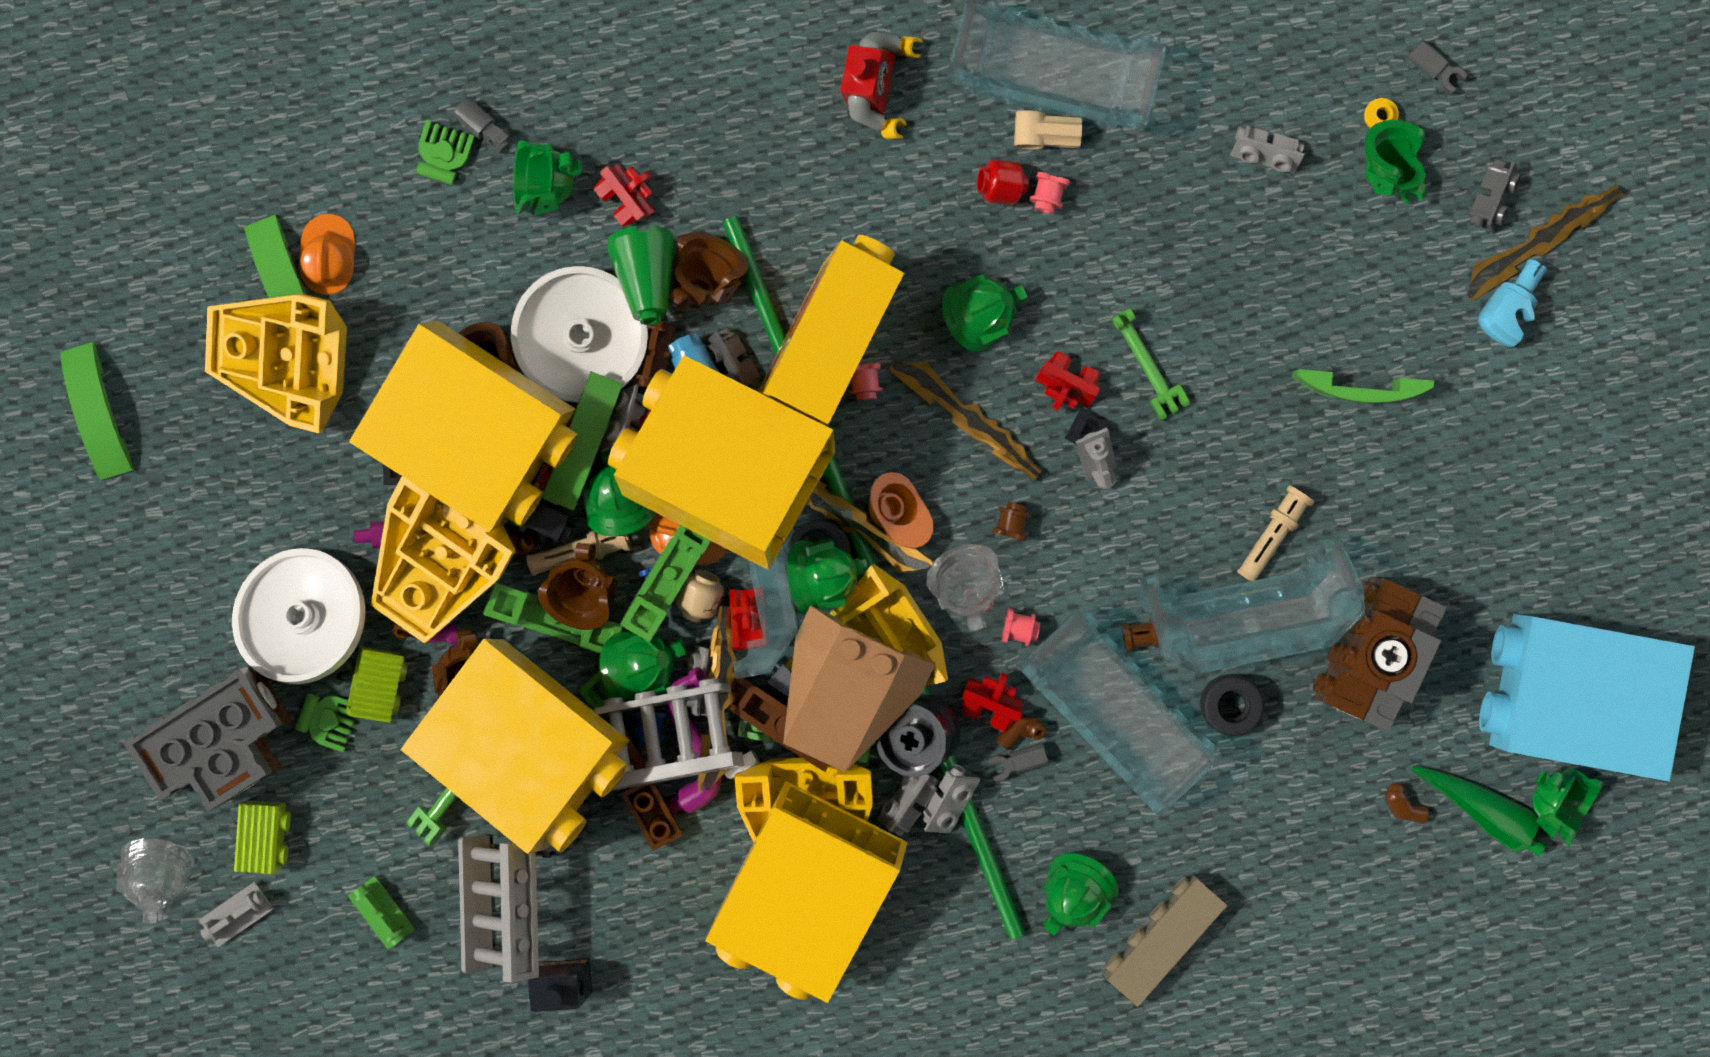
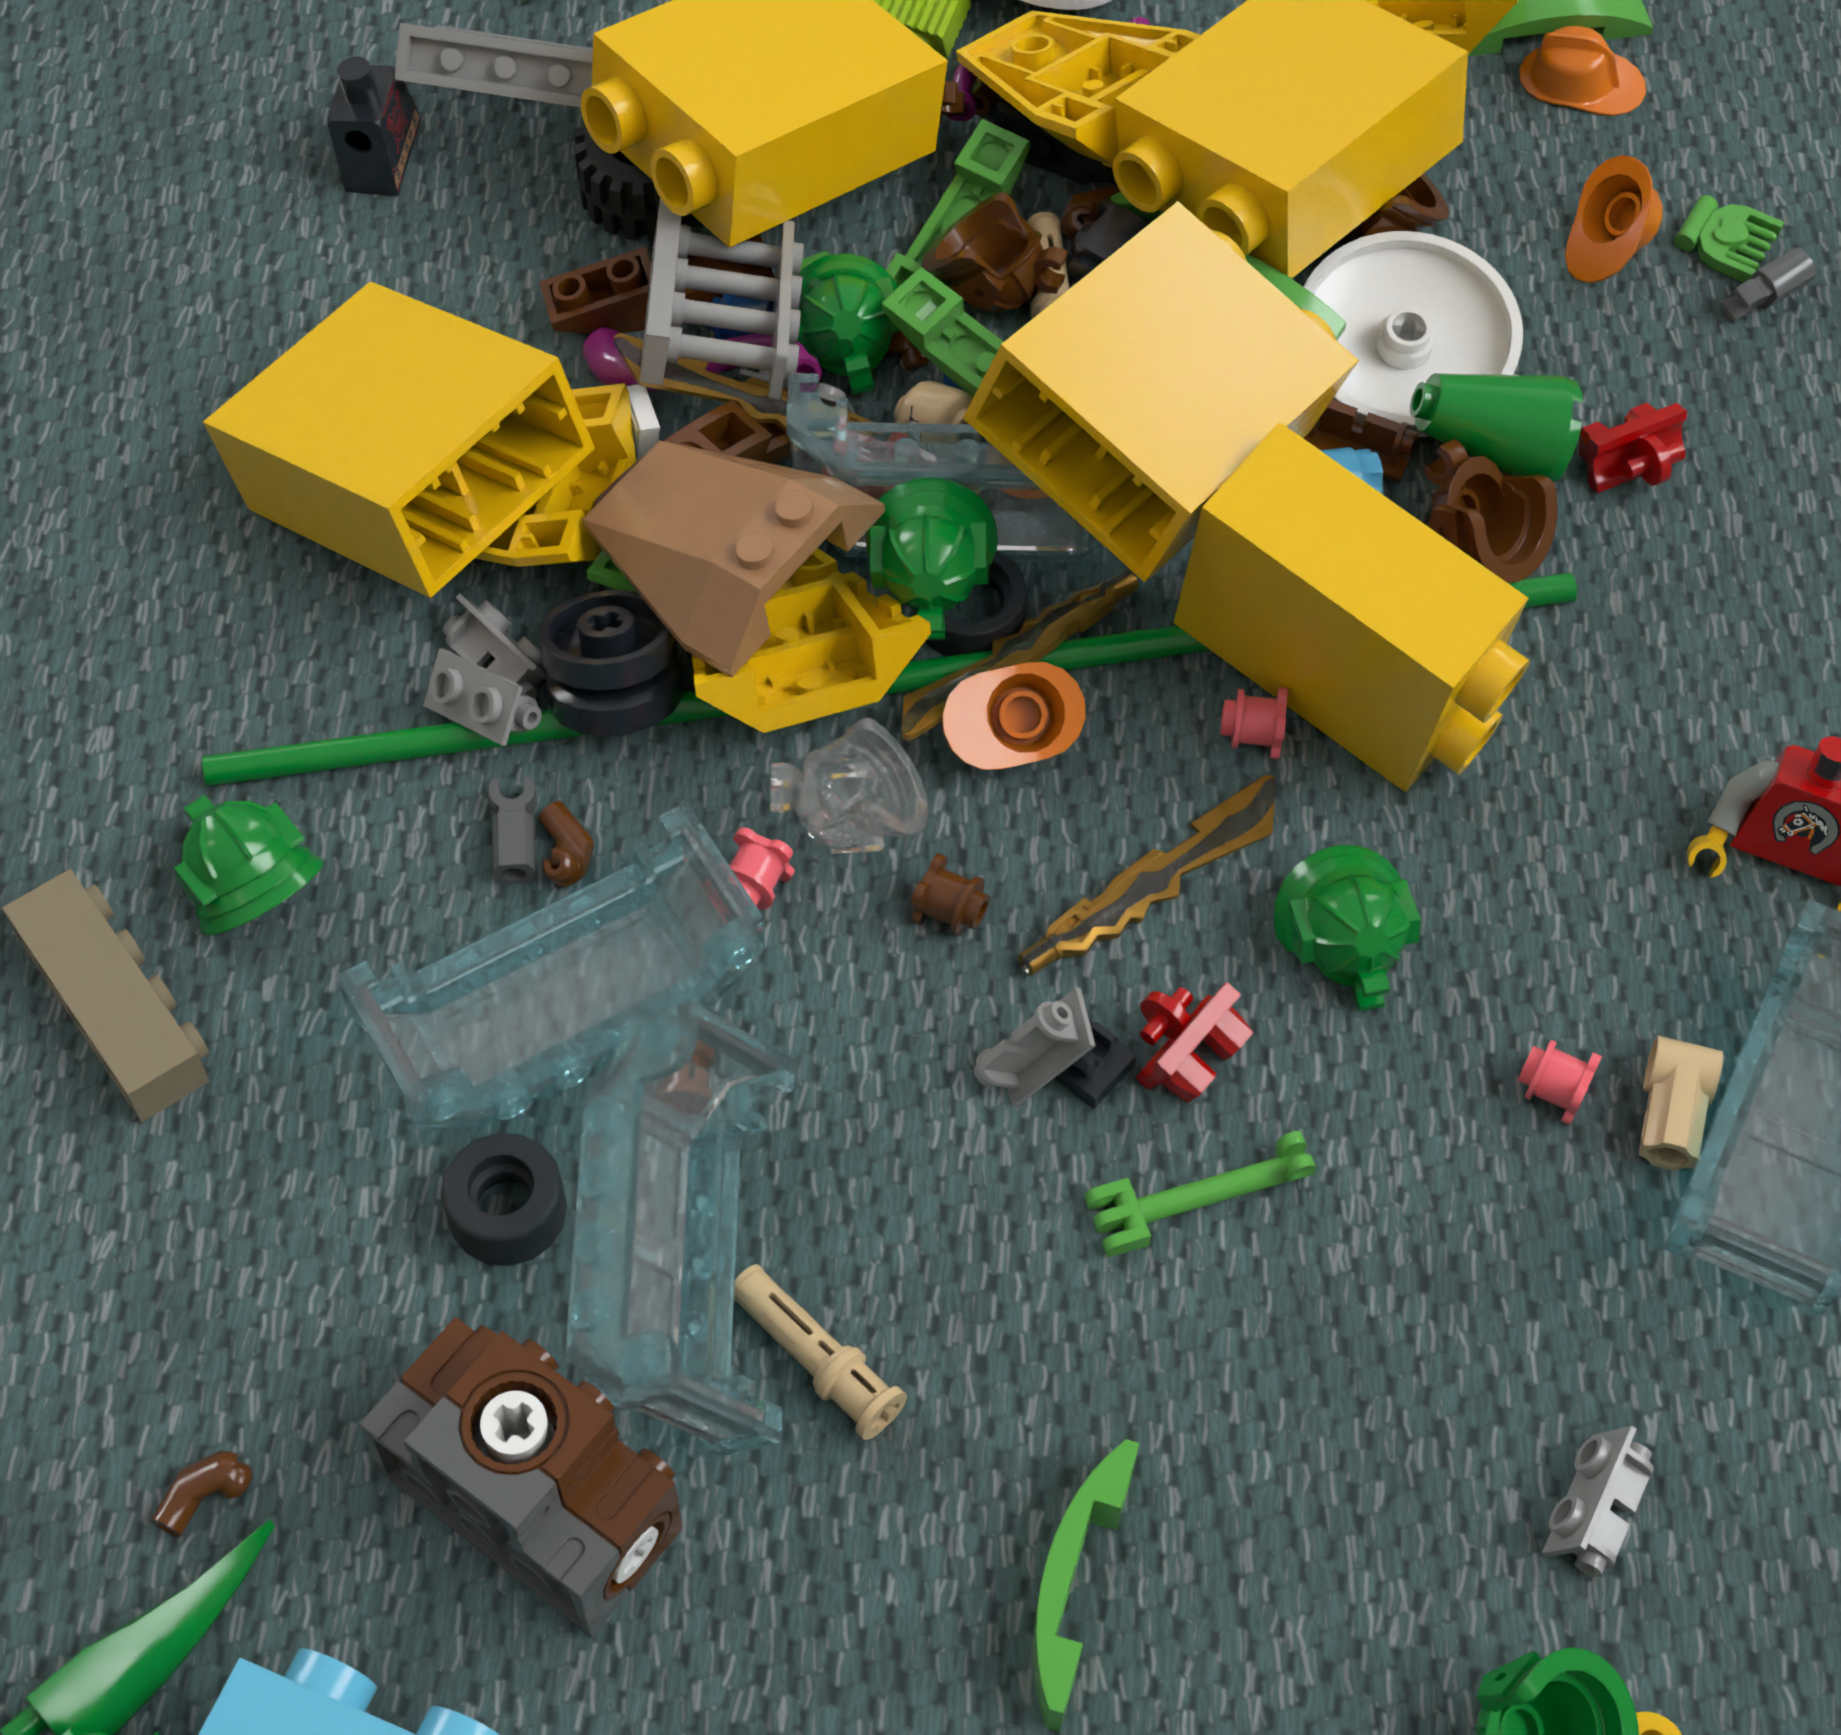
camera: 105 degrees right, 30 degrees down
(459, 224) = (1613, 219): none -> orange piece
(542, 177) = (1669, 344): green helmet -> none
(994, 696) = (632, 810): red hips -> none
(1002, 182) = (1588, 1002): red head -> none

